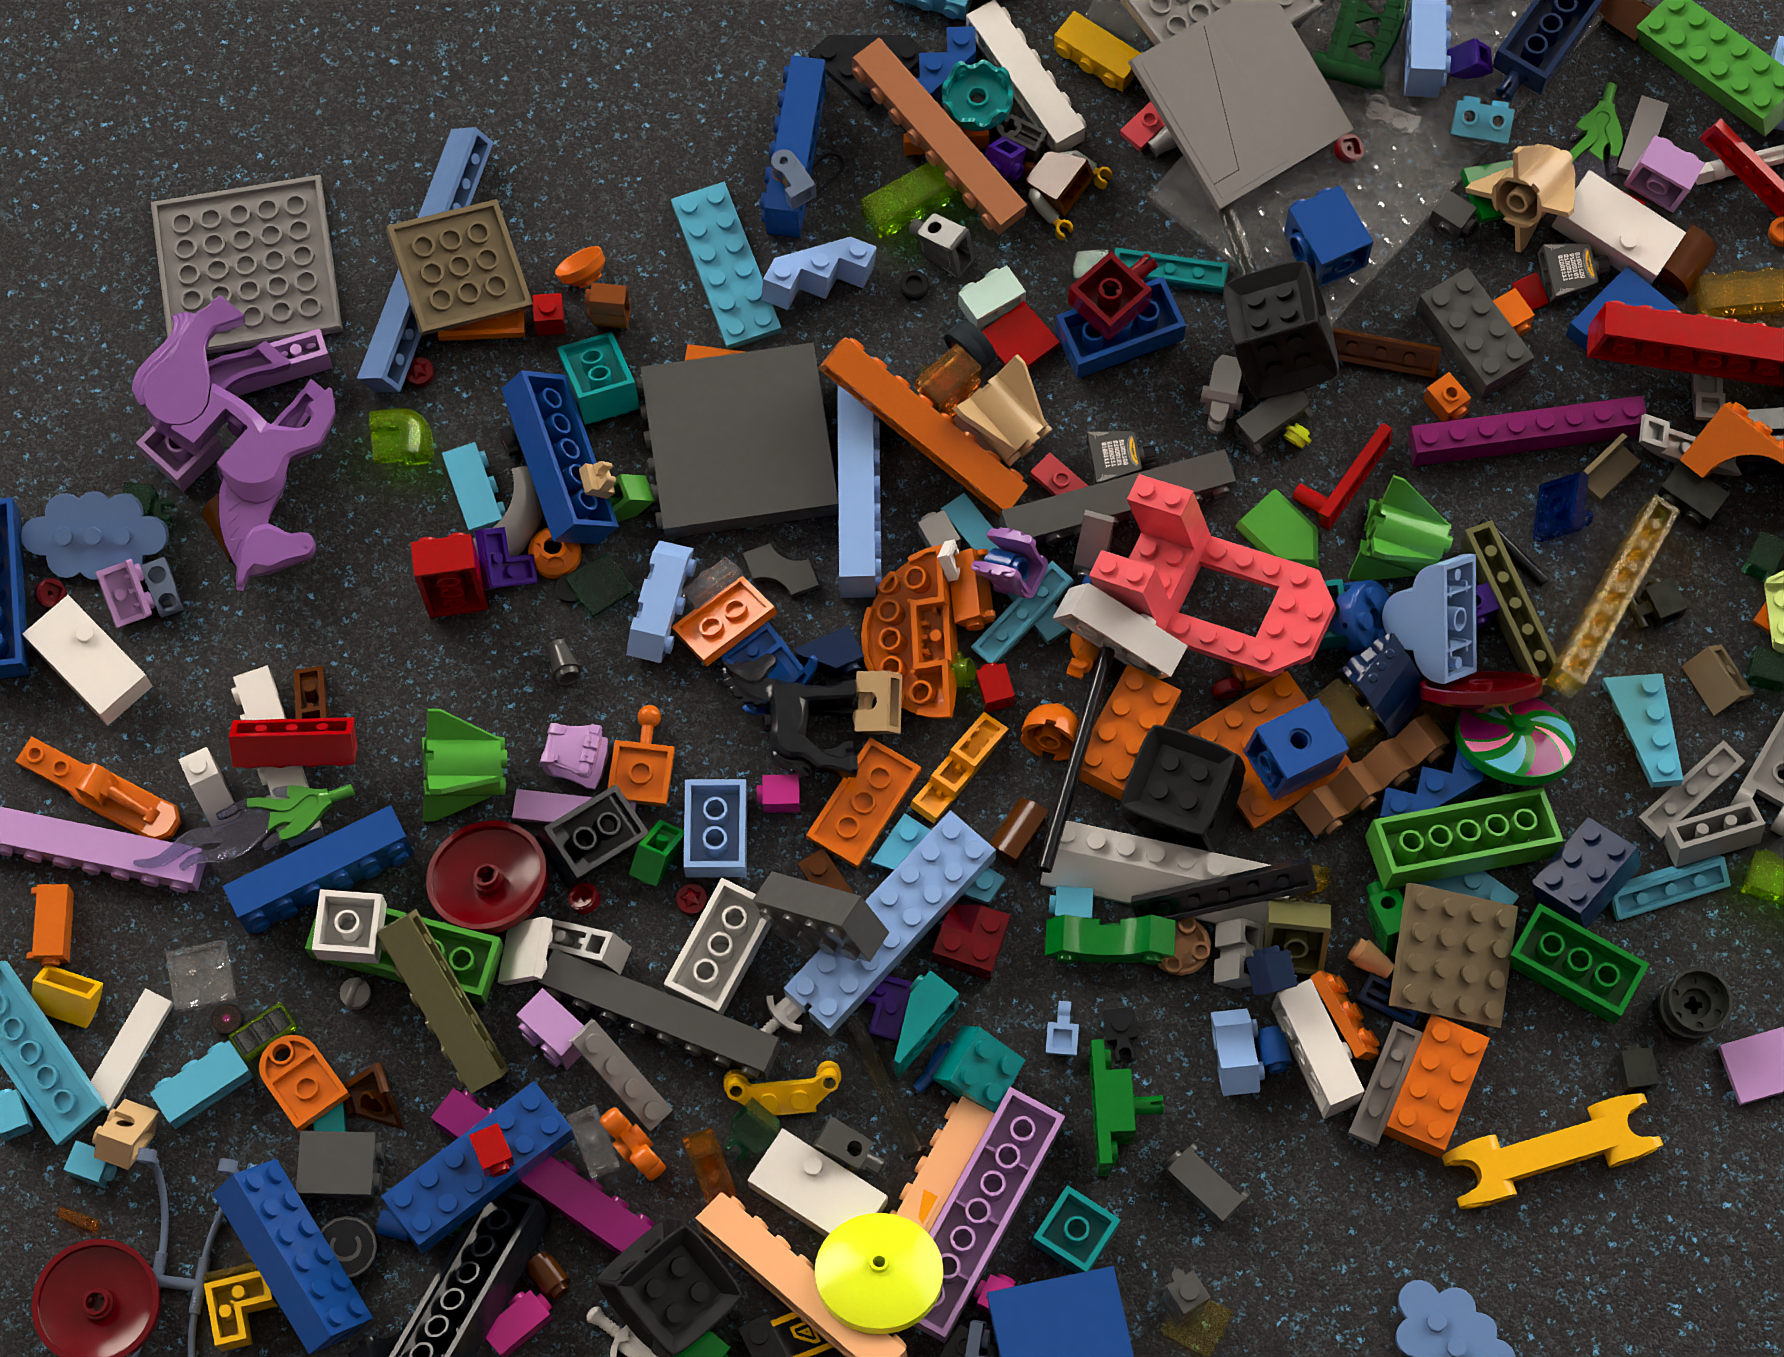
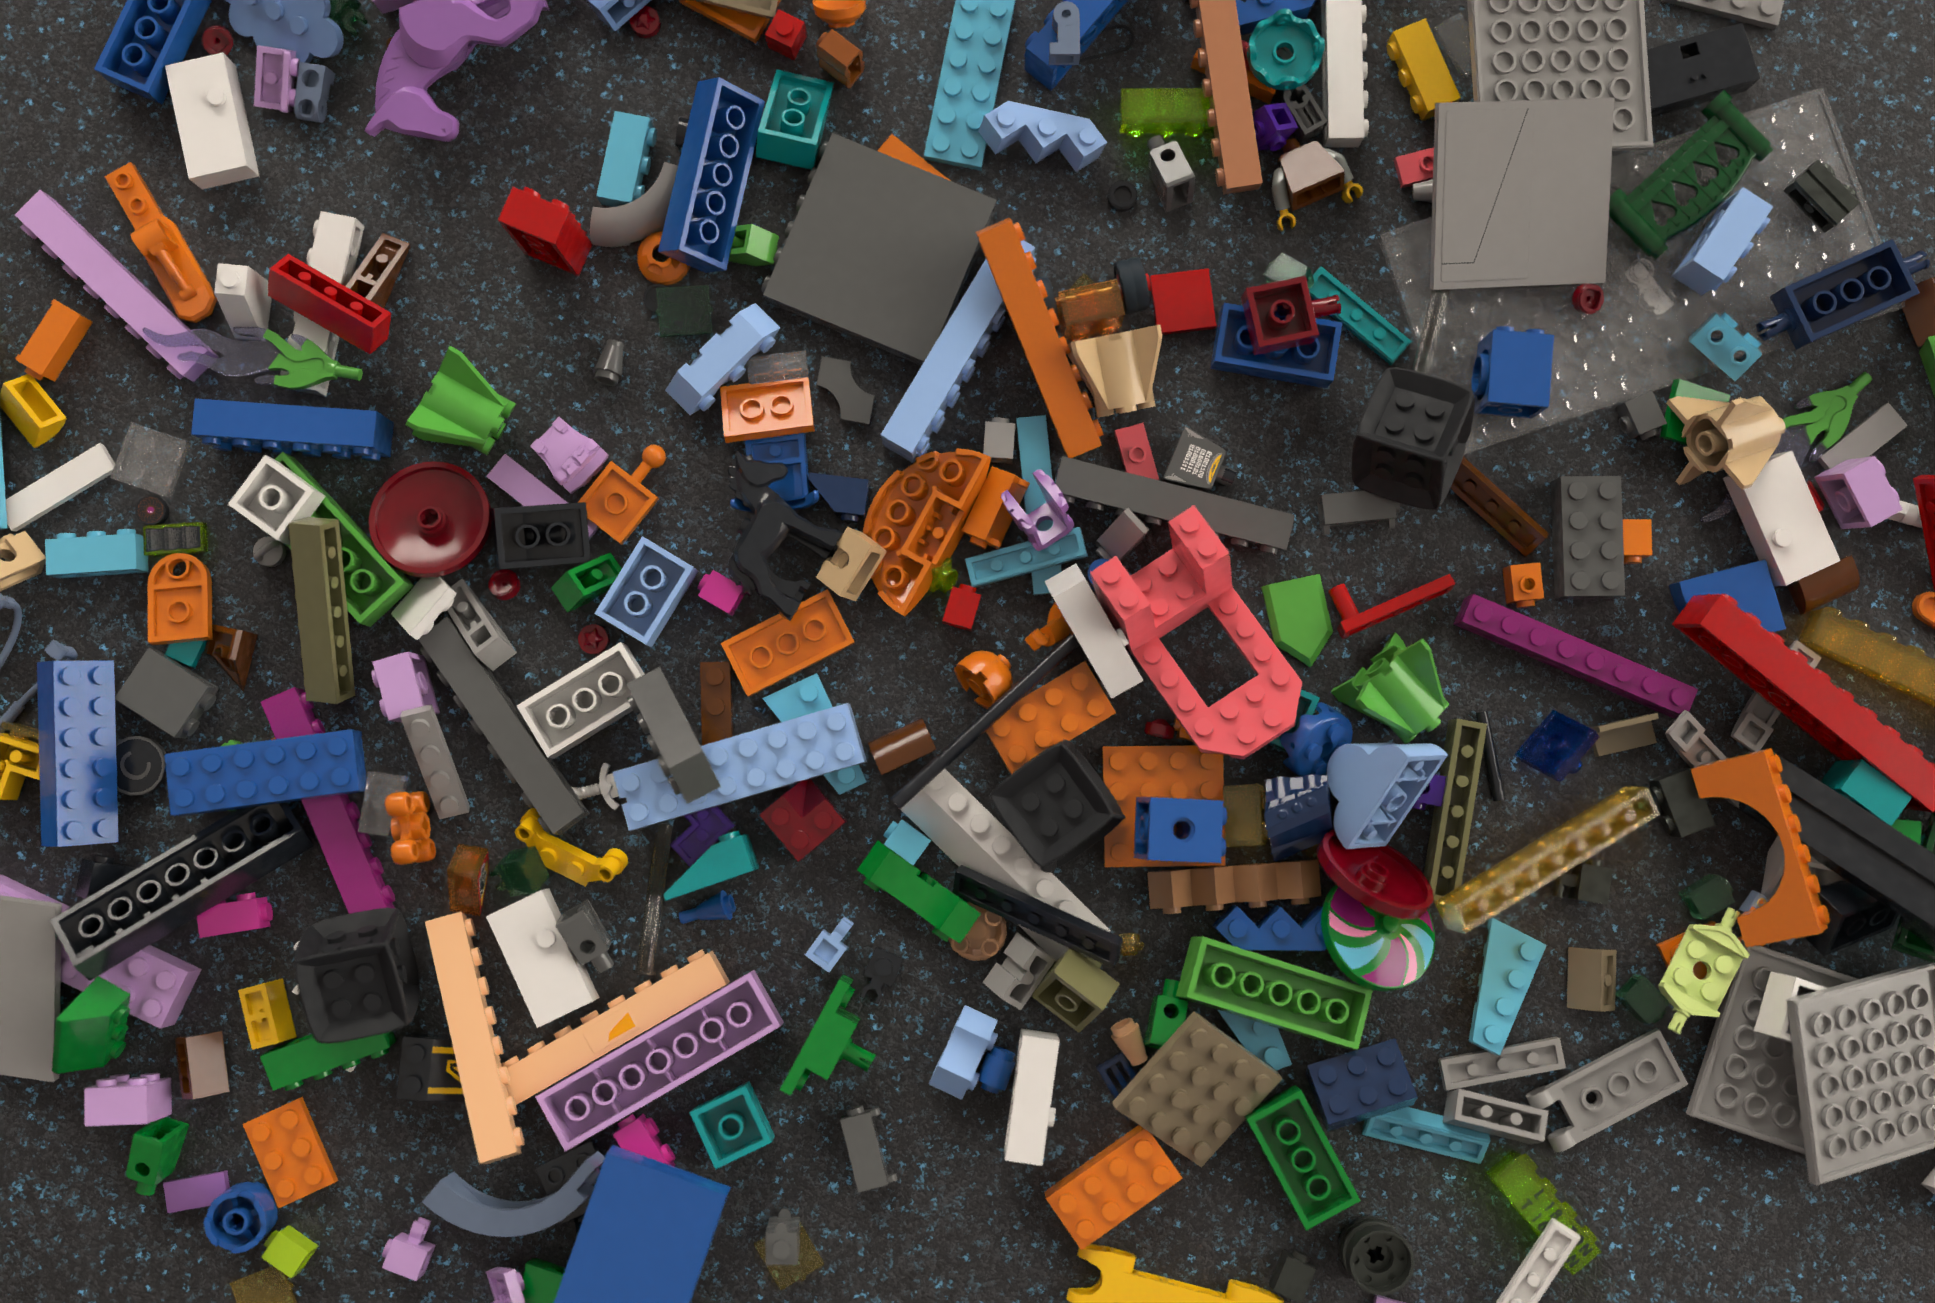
camera: 30 degrees right, 15 degrees up
(400, 436) = (593, 72): clear neon green brick -> none
(492, 1151) = (272, 775): red brick -> none
(497, 566) = (600, 244): dark purple tile -> none
(548, 1276) = (283, 891): reddish brown brick -> none
(597, 479) = (729, 217): tan tile -> none
(879, 1273) = (543, 1099): neon yellow dish -> none
(947, 560) = (987, 472): white tile -> none
(959, 767) = (888, 660): light orange slope -> none
(978, 1067) = (736, 938): teal brick -> none
(991, 297) = (1181, 248): light aqua brick -> none
(1009, 559) = (1036, 507): blue brick -> none
(1222, 393) = (1326, 462): light grey hinge -> none
(1271, 970) = (1028, 1015): dark blue brick -> none
(1297, 435) = (1369, 537): neon yellow plate -> none
(1346, 1015) = (1074, 1082): orange plate -> none
(1385, 1083) = (1073, 1155): light grey plate -> none
(1470, 60) = (1755, 279): dark purple brick -> none
(1531, 291) = (1664, 528): red slope -> none
(1569, 270) = (1712, 530): dark grey torso -> none

